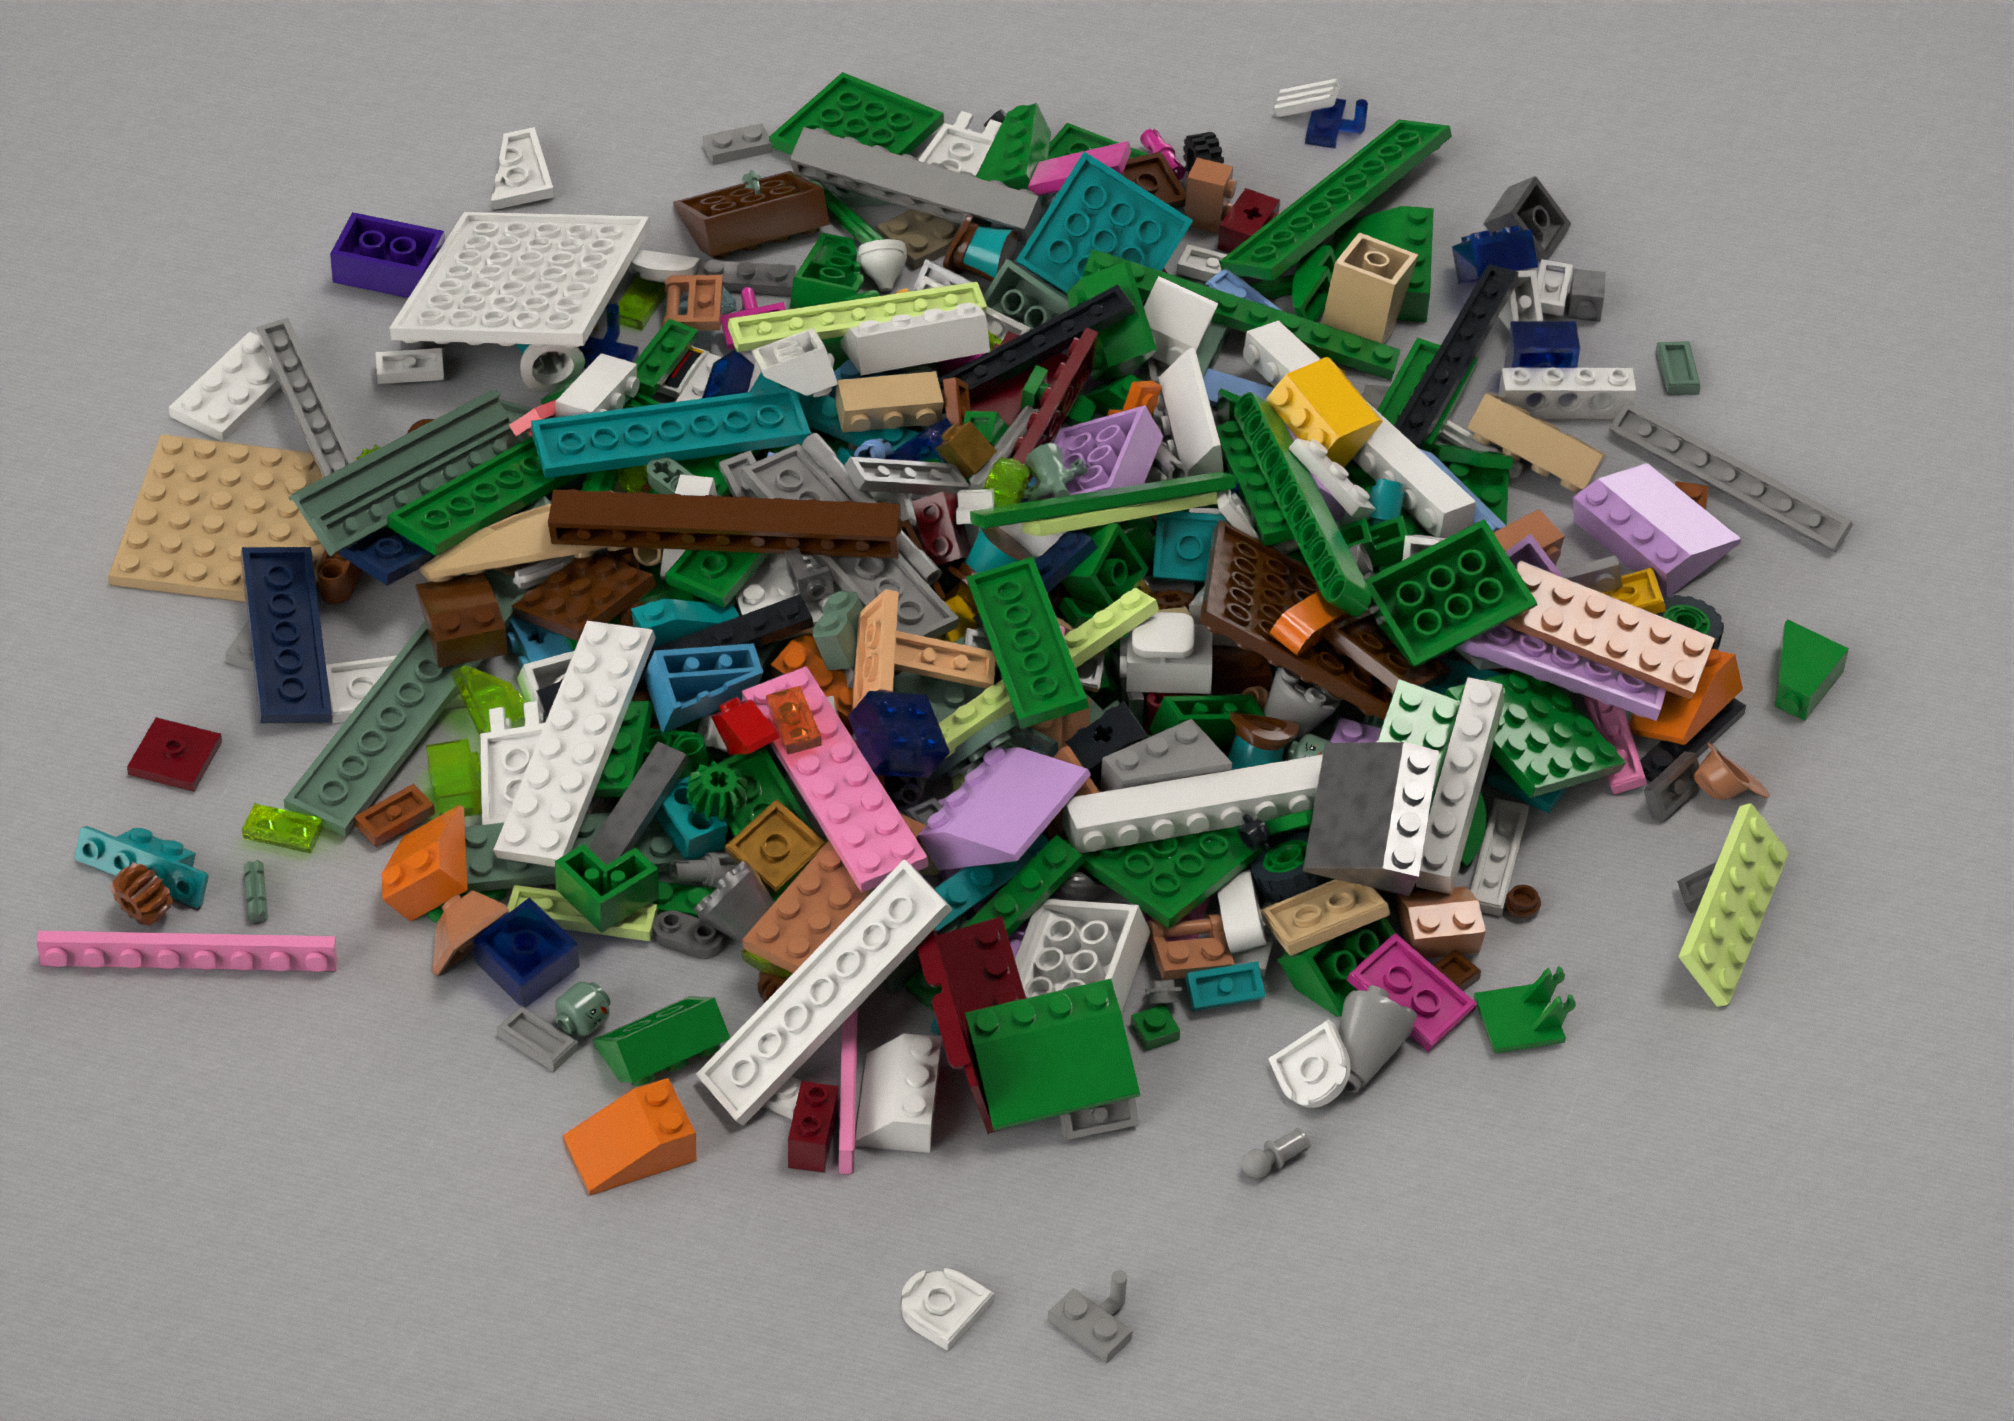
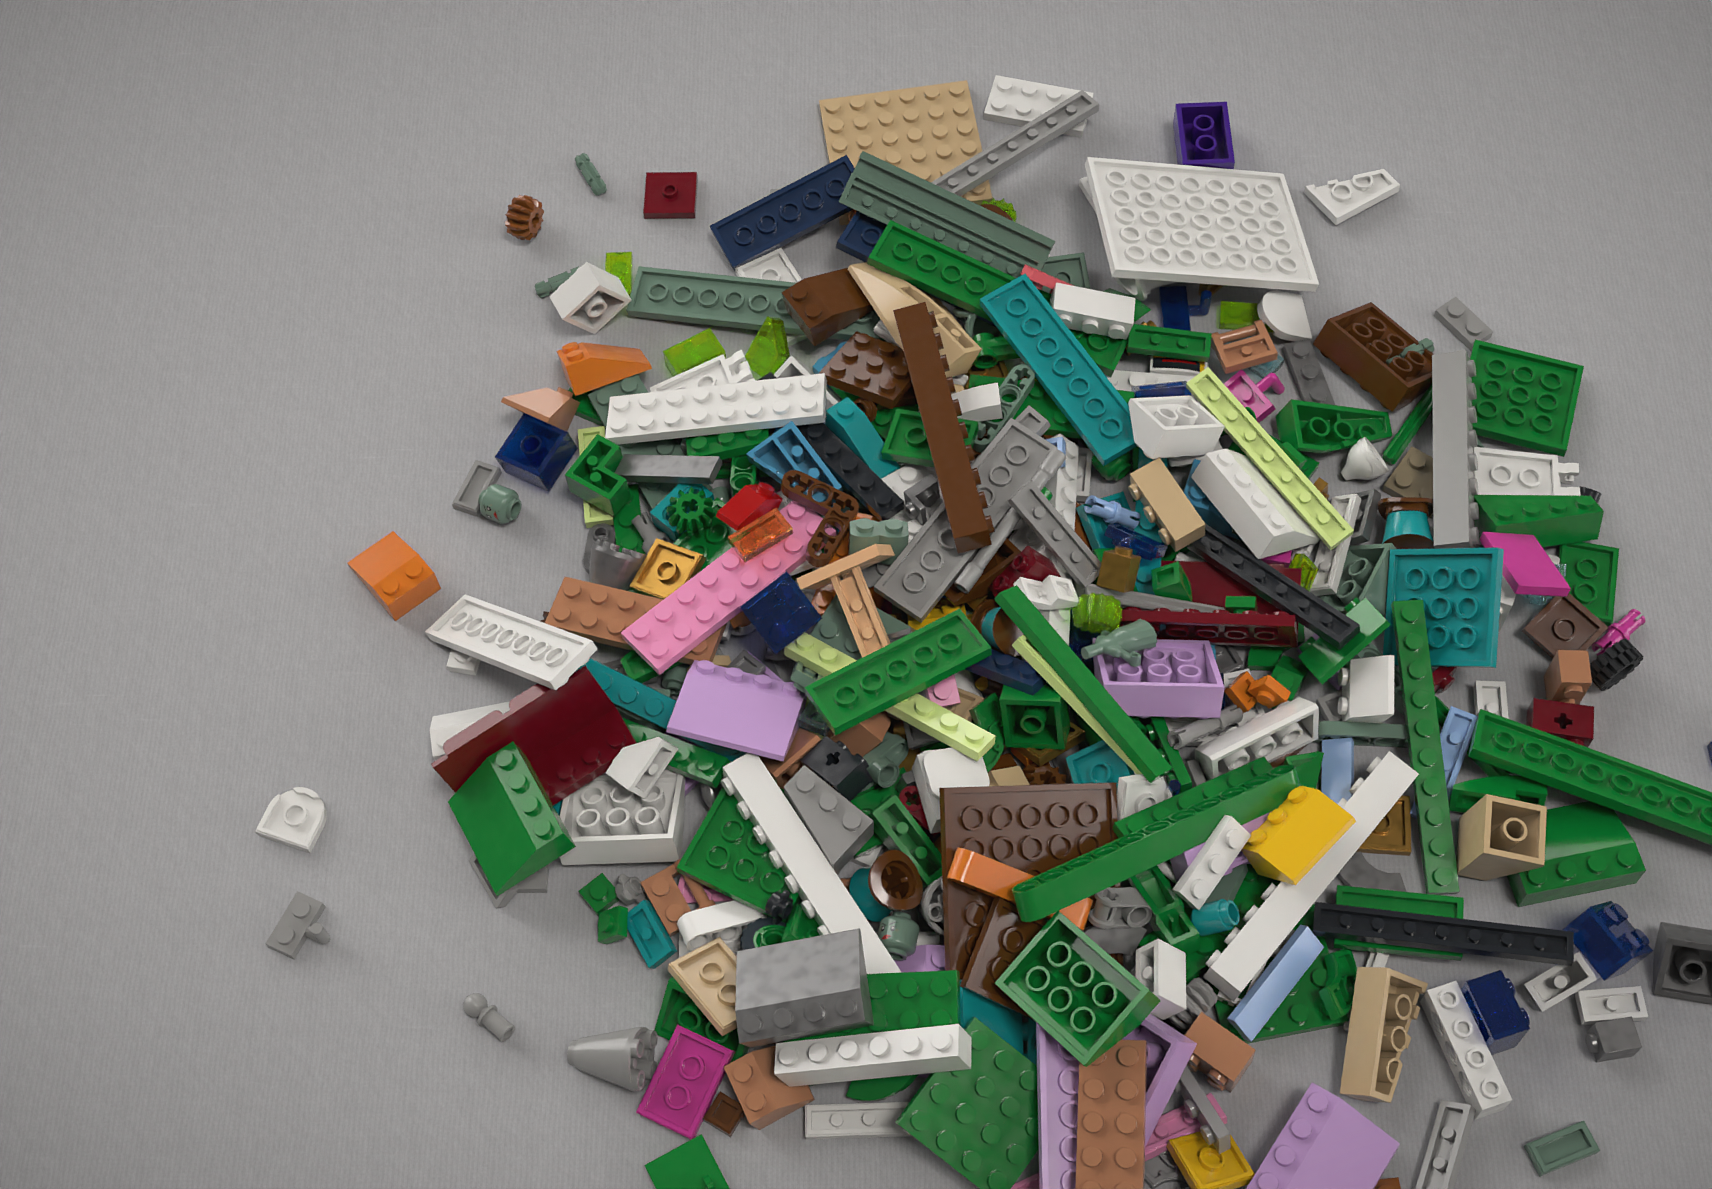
camera: 80 degrees right, 15 degrees up
(117, 822) = (590, 174): none -> sand green axle
(138, 846) = (568, 212): teal bracket -> none
(187, 951) = (490, 270): bright pink plate -> none
(326, 840) = (590, 298): none -> white brick
(394, 815) = (650, 334): dark orange plate -> none
(663, 1039) = (488, 561): green slope -> none
(789, 649) = (832, 515): none -> reddish brown beam
(813, 1126) = (428, 682): dark red brick -> none
(848, 1094) = (483, 692): bright pink tile -> none
(955, 400) = (1189, 553): dark orange plate -> none
(1033, 918) = (641, 765): none -> white slope
(1202, 1016) = (612, 925): none -> green plate
(1313, 1067) = (576, 1022): white tile -> none
(1523, 901) = (819, 1152): reddish brown plate -> none

